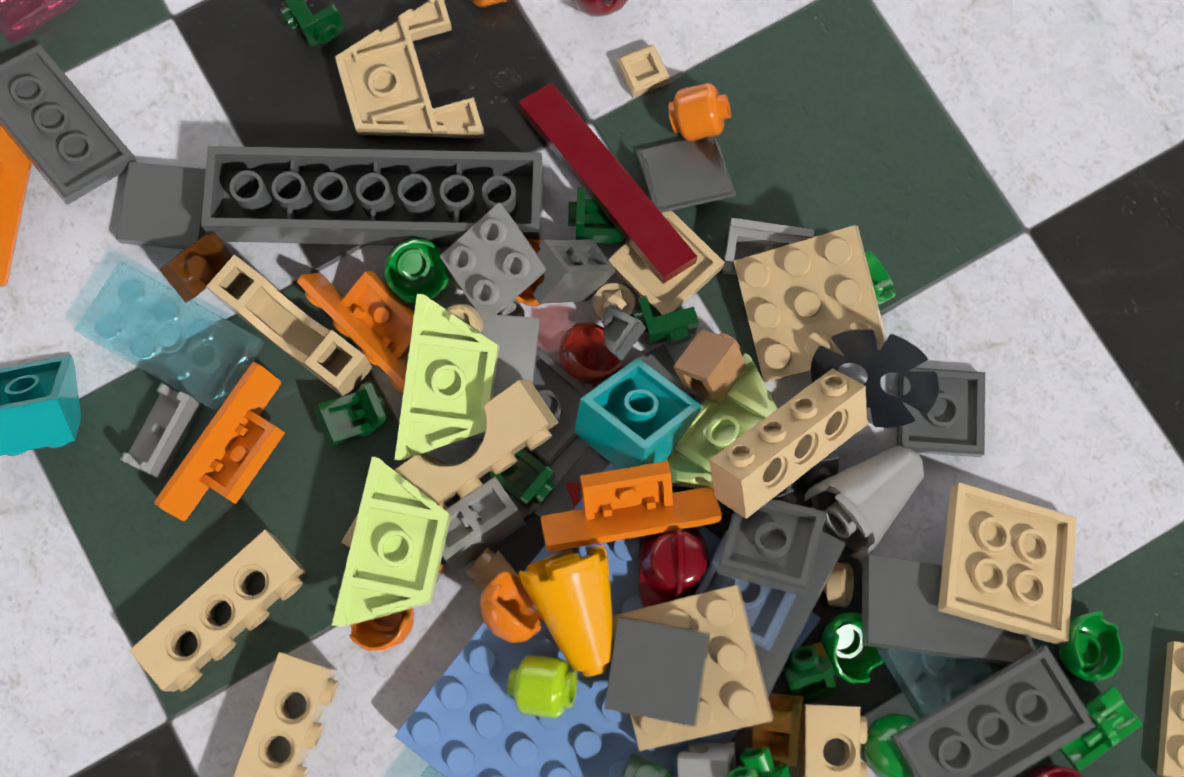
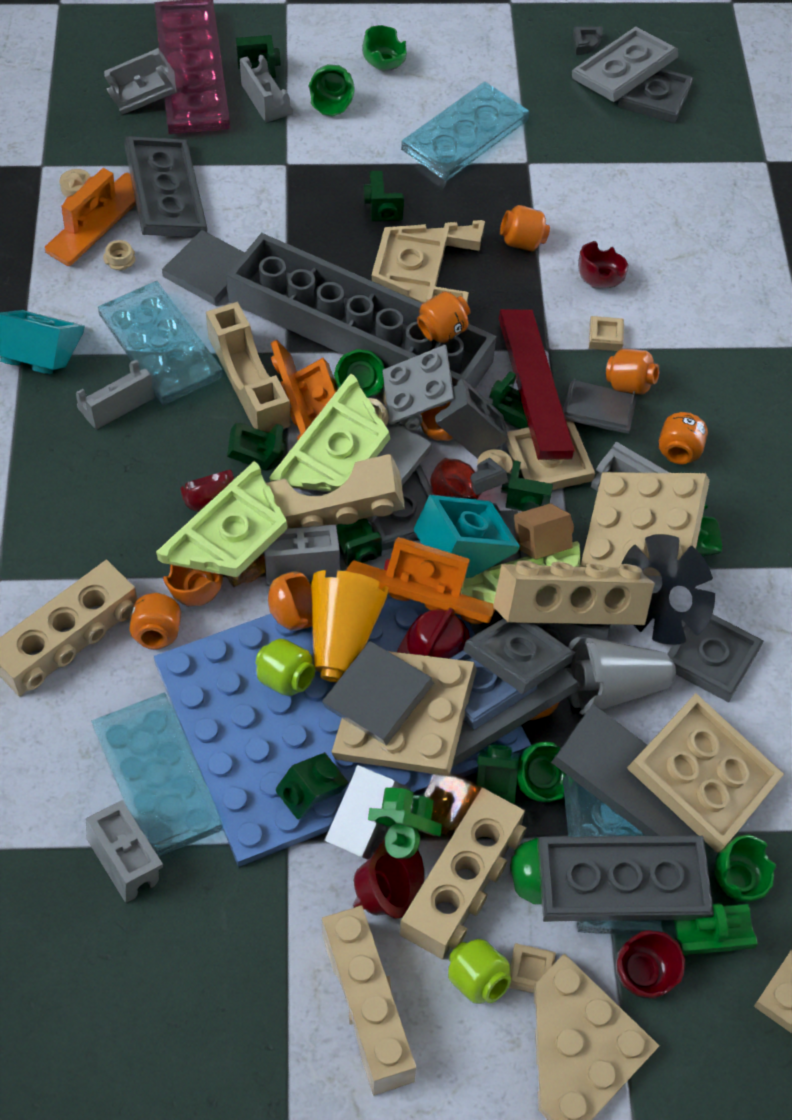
camera: 25 degrees right, 20 degrees down
(49, 237) = (119, 255): none -> tan plate
(161, 648) = (64, 515): tan brick -> none
(196, 266) = (199, 300): reddish brown bracket -> none
(228, 449) = (153, 424): orange bracket -> none
(334, 501) = (203, 490): none -> dark red hair
(368, 687) = (155, 620): none -> orange head
(478, 166) = (443, 317): none -> orange head
(793, 170) = (683, 438): none -> orange head
(840, 585) = (559, 725): tan tile -> none

